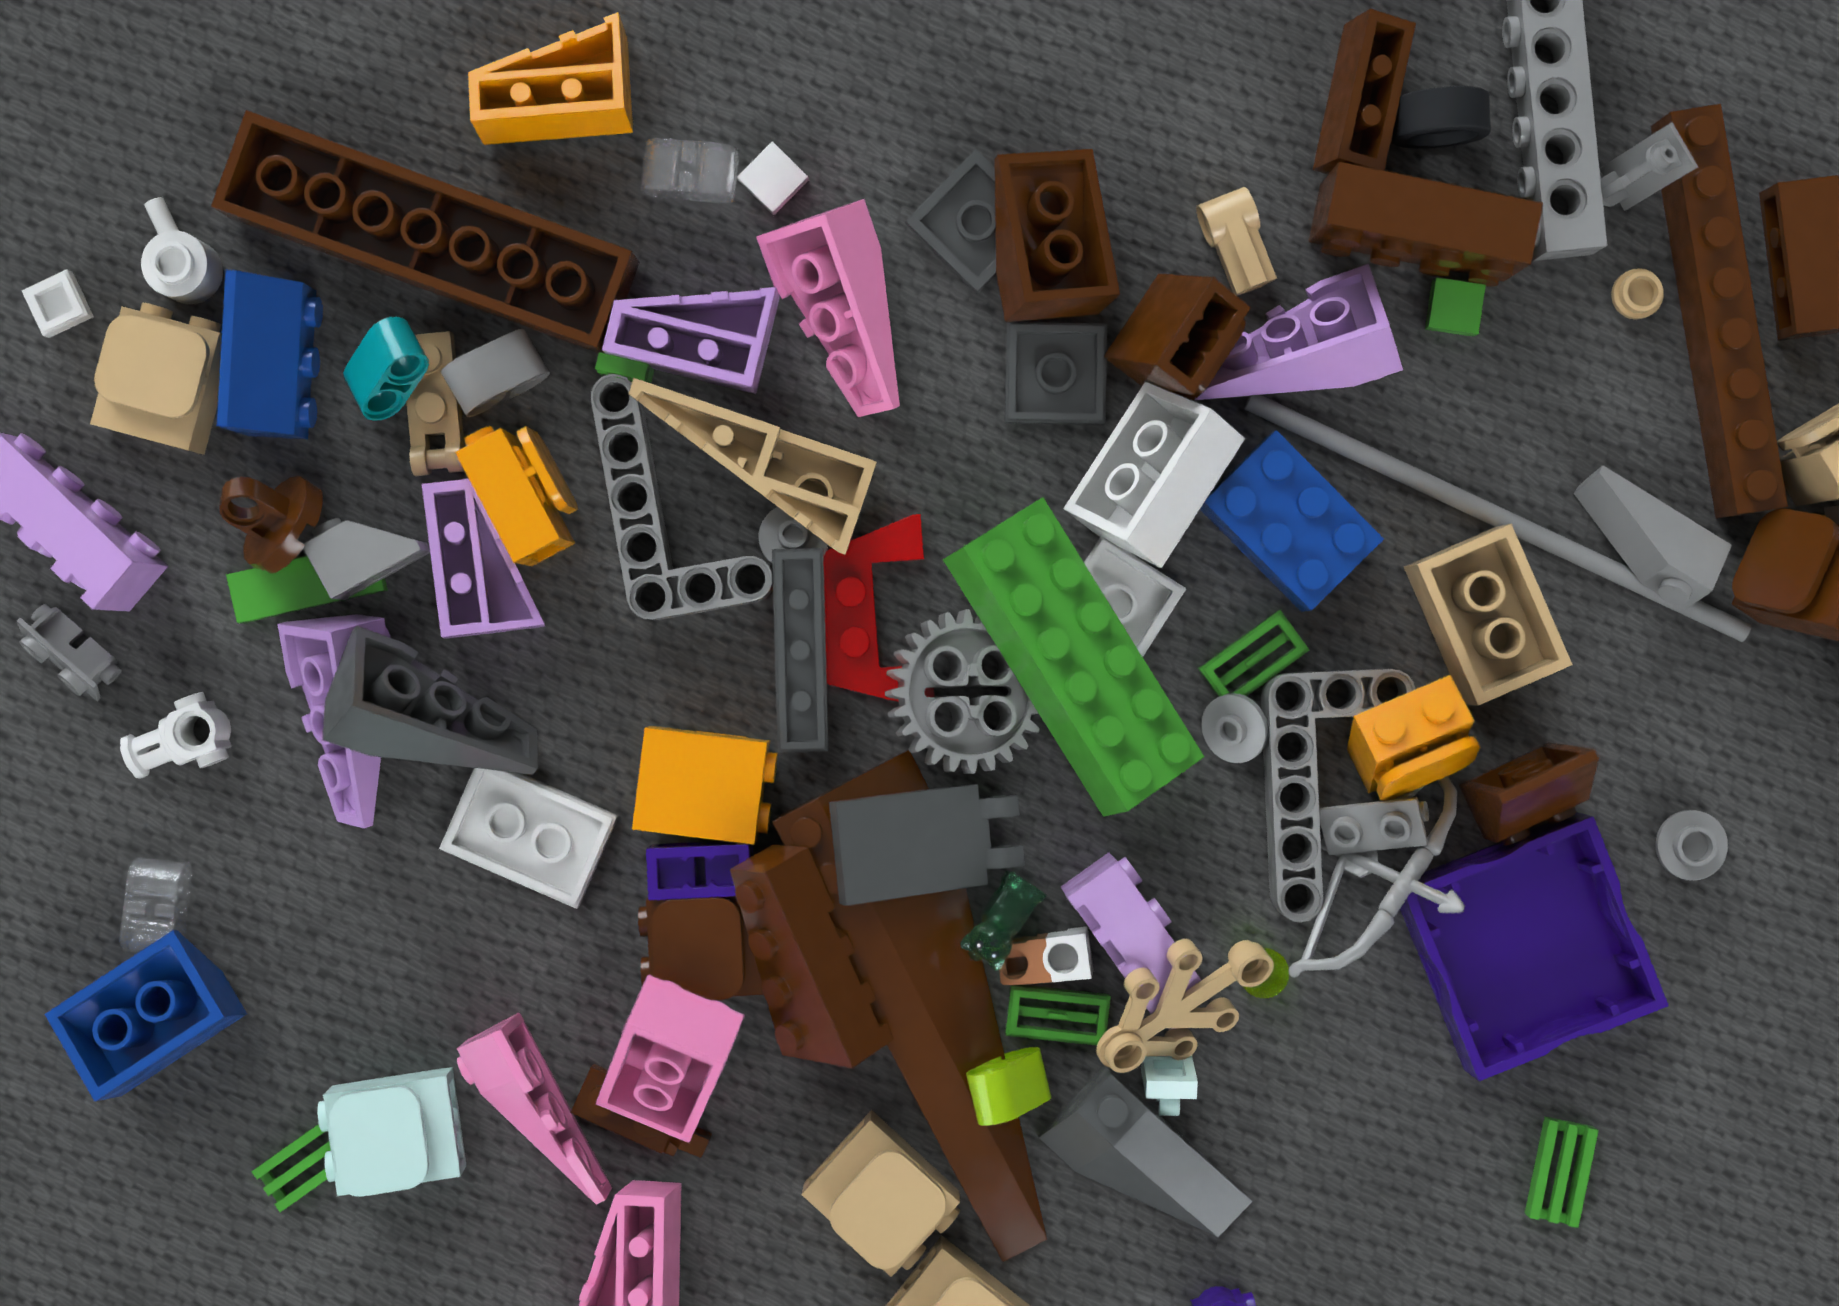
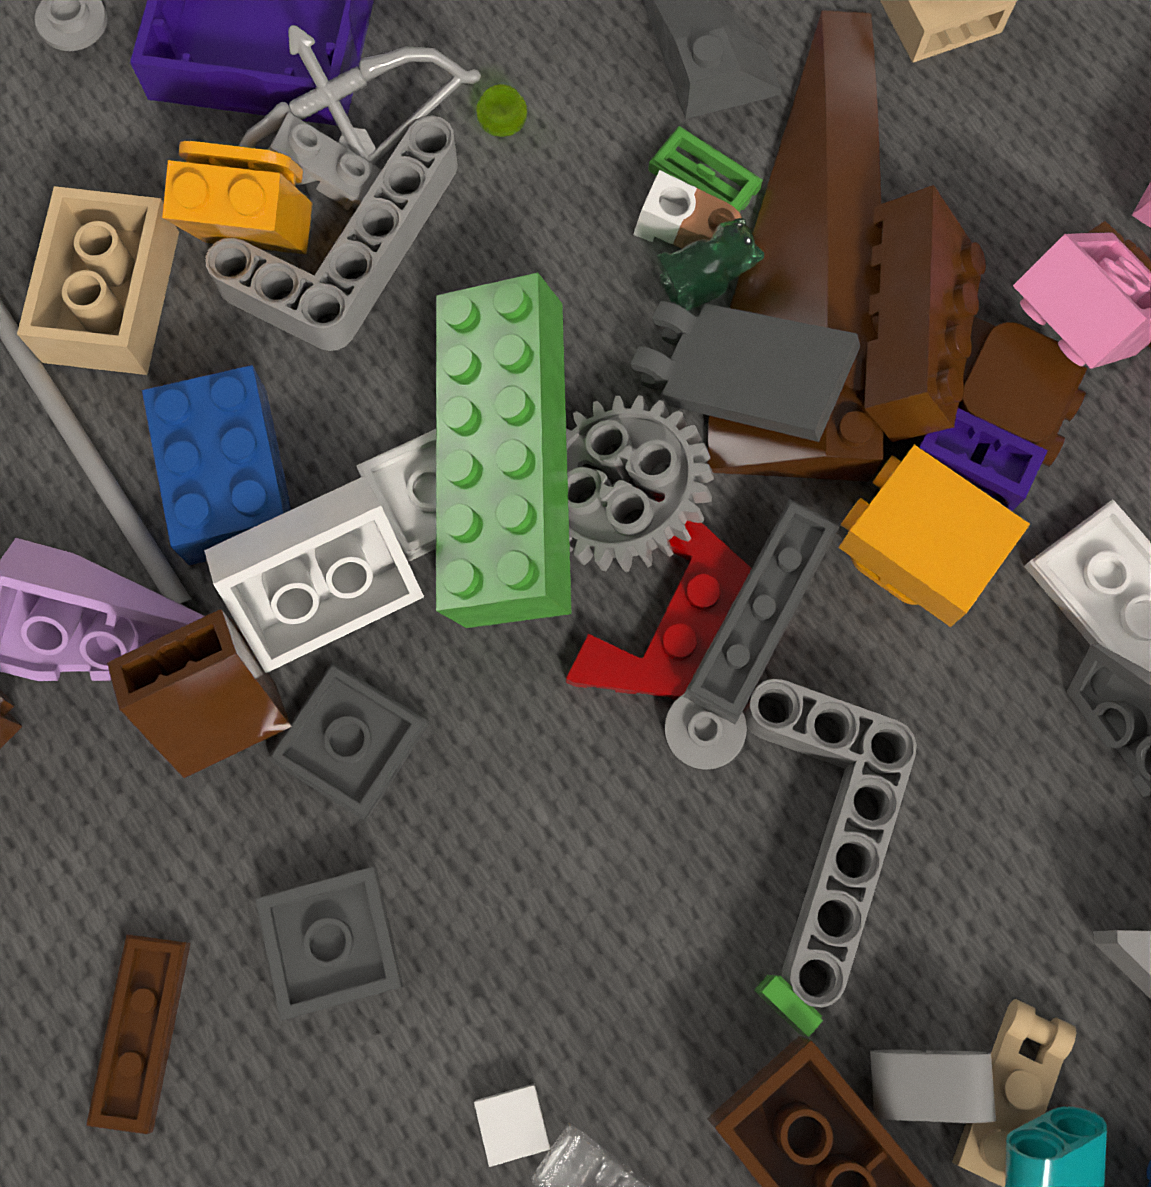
camera: 155 degrees left, 15 degrees down
(472, 570) = (1061, 886): lavender wedge -> none
(520, 491) = (974, 933): light orange brick -> none
(698, 336) = (693, 991): lavender wedge -> none
(801, 476) = (666, 782): tan wedge -> none
(838, 283) = (508, 969): bright pink wedge -> none
(882, 1195) = (954, 106): tan brick -> none
(1009, 1086) = (787, 127): lime beam -> none
(1052, 236) = (259, 876): reddish brown slope -> none
(1072, 82) = (138, 1034): none -> reddish brown tile
(1123, 920) = (597, 199): lavender wedge -> none
(1134, 1038) = (661, 103): tan plant -> none
(1169, 1082) = (639, 68): light aqua tile -> none
(1232, 228) = (83, 778): tan piece -> none
(1235, 728) = (392, 317): light grey piece -> none
(1288, 633) = (336, 390): bright green tile -> none
(1531, 790) = (159, 108): reddish brown slope -> none

